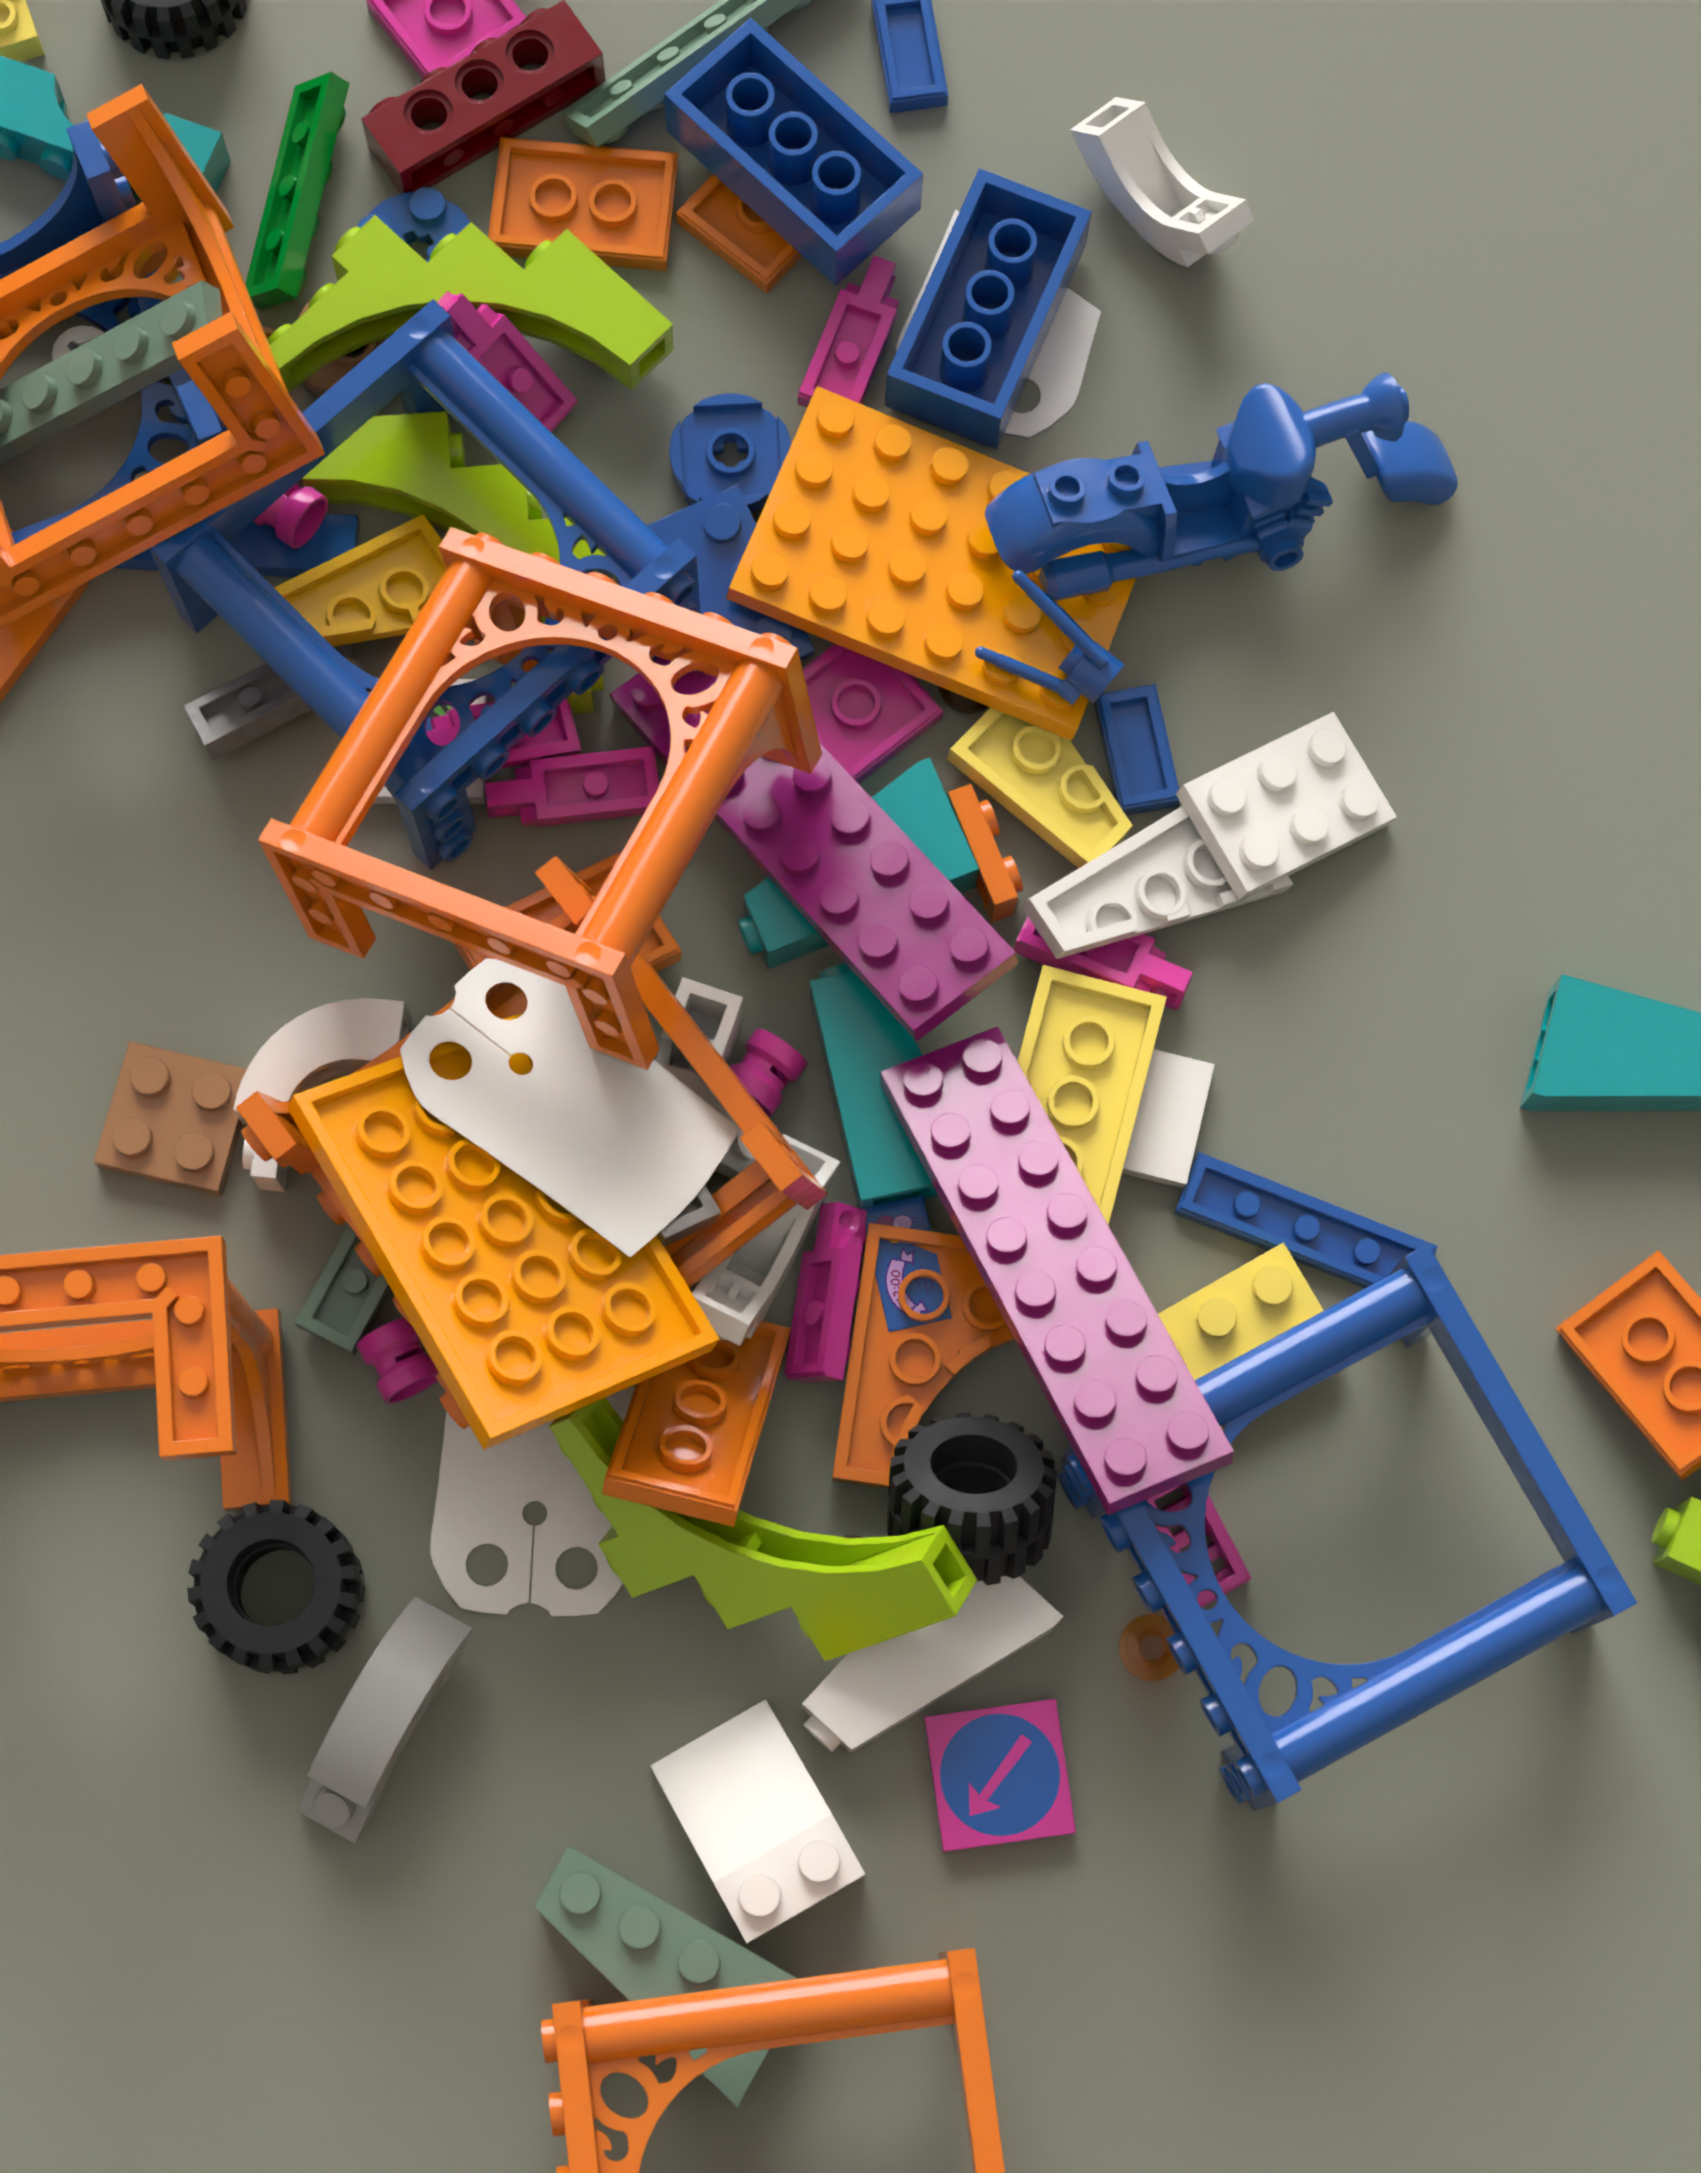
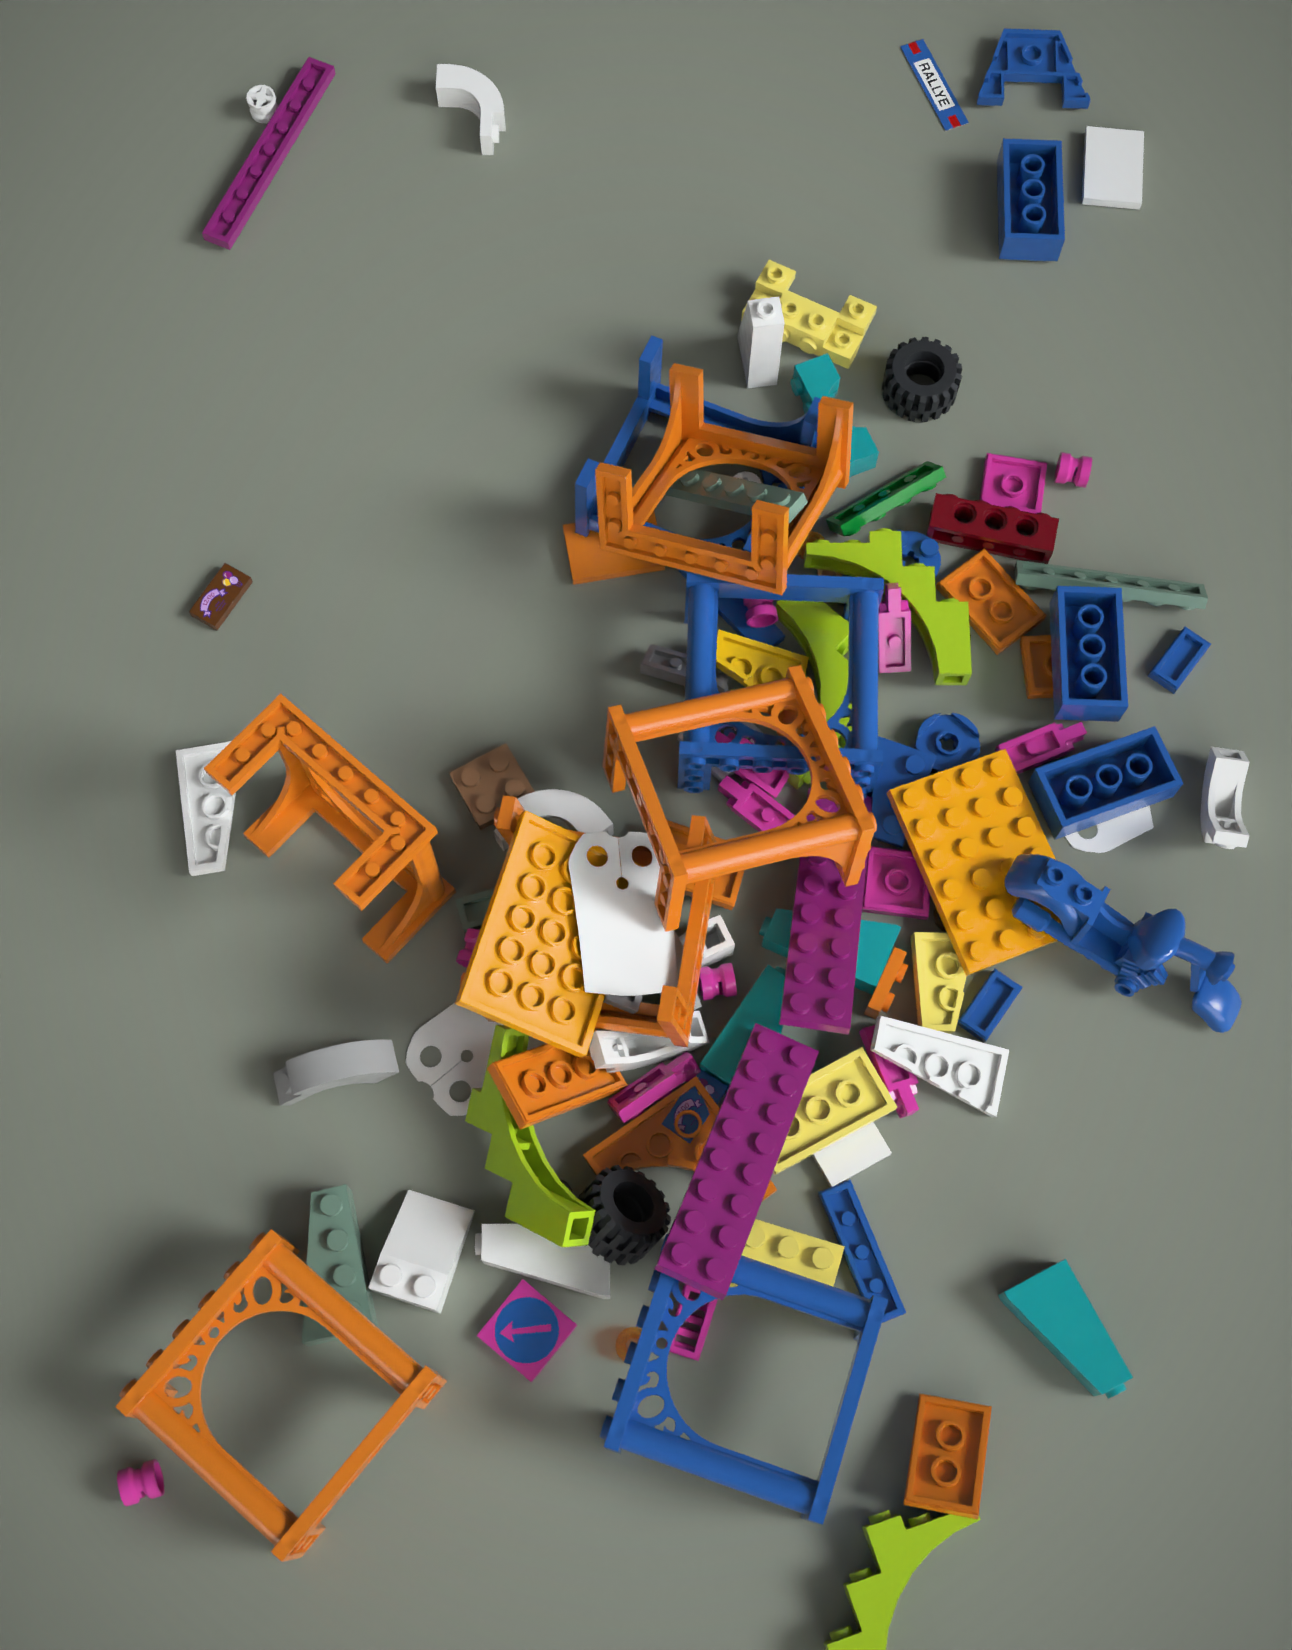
camera: 50 degrees right, 5 degrees down
(230, 1555) = (336, 962): black tyre -> none
(1087, 665) = (999, 951): blue plant -> none
(1285, 805) = (1024, 1083): white plate -> none

